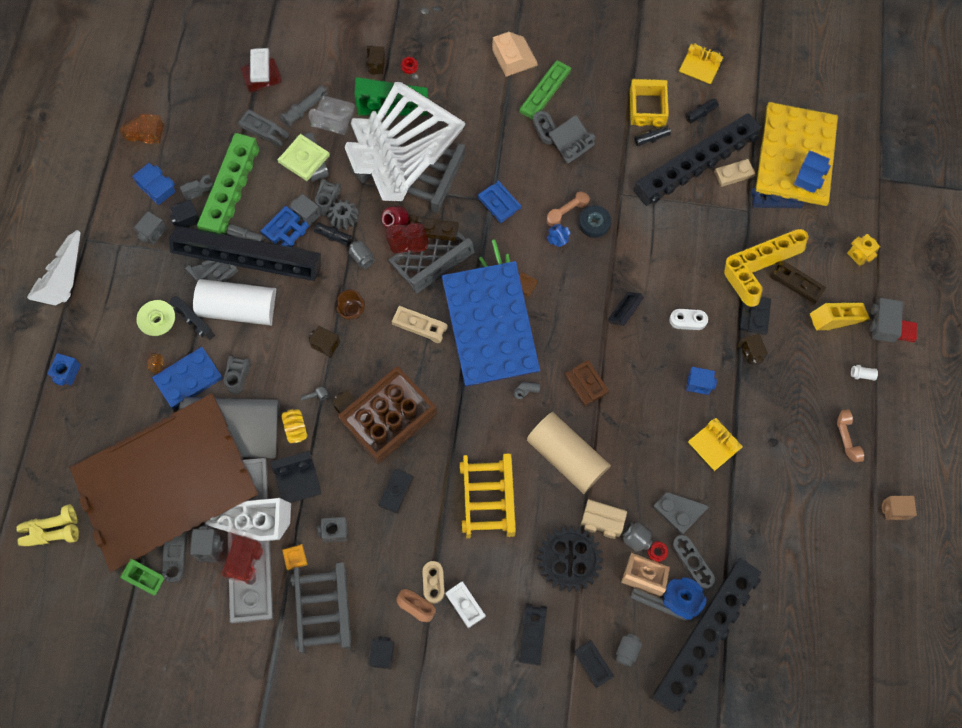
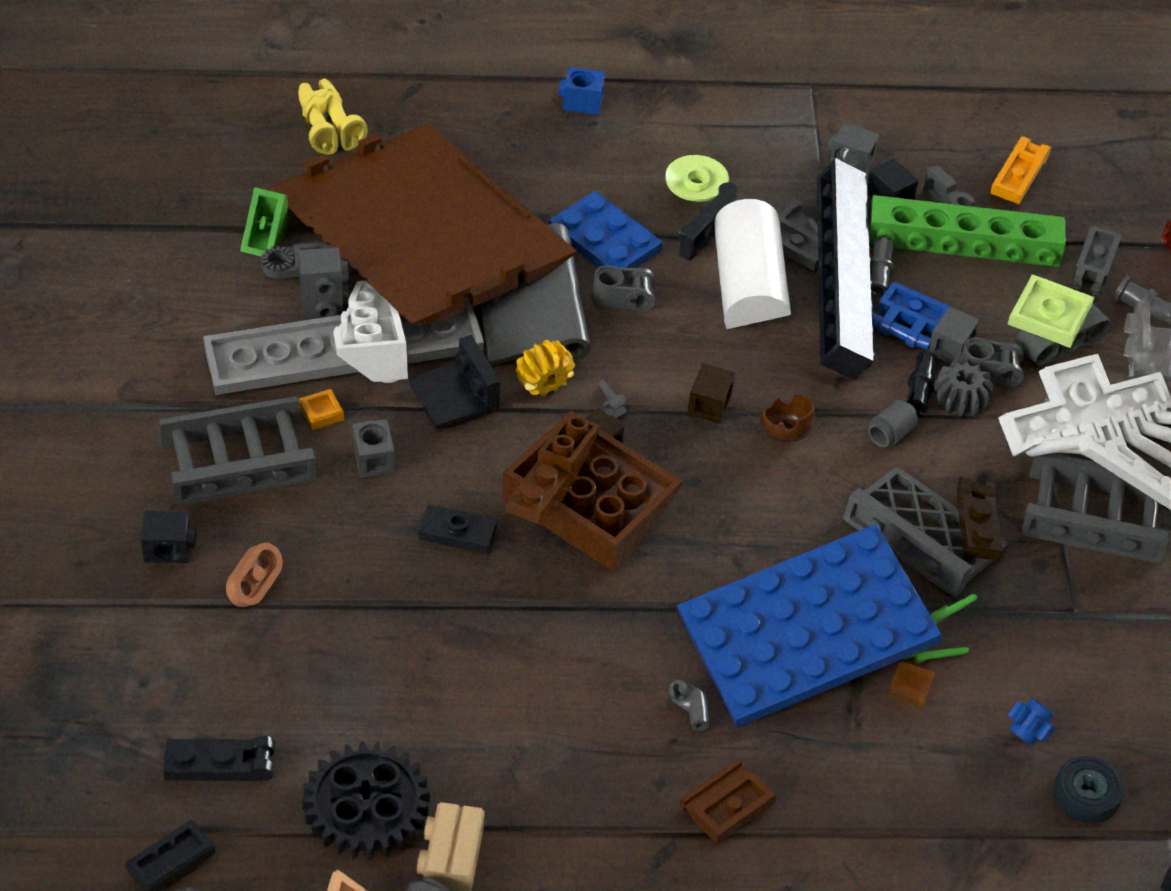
camera: 80 degrees right, 20 degrees down
(59, 279) = (723, 56): white wedge -> none
(143, 128) = (1032, 114): clear orange slope -> none
(154, 183) = (936, 140): blue brick -> none
(155, 363) = (619, 190): clear orange tile -> none
(185, 146) = (1020, 170): none -> light orange plate
(242, 559) = (301, 327): clear red brick -> none
(387, 430) = (555, 469): none -> reddish brown slope
(394, 215) = (980, 457): dark red head -> none
(406, 238) = (943, 477): clear red brick -> none
(419, 324) = (780, 522): tan plate -> none
(433, 582) = (298, 597): tan plate -> none
(465, 604) = (262, 647): white plate -> none
(499, 201) = (1073, 620): blue plate -> none
(505, 504) = (473, 690): yellow fence -> none
(555, 215) = (1131, 760): nougat bar -> none
(568, 452) = (581, 783): tan brick -> none
(625, 308) = (906, 856): black plate -> none

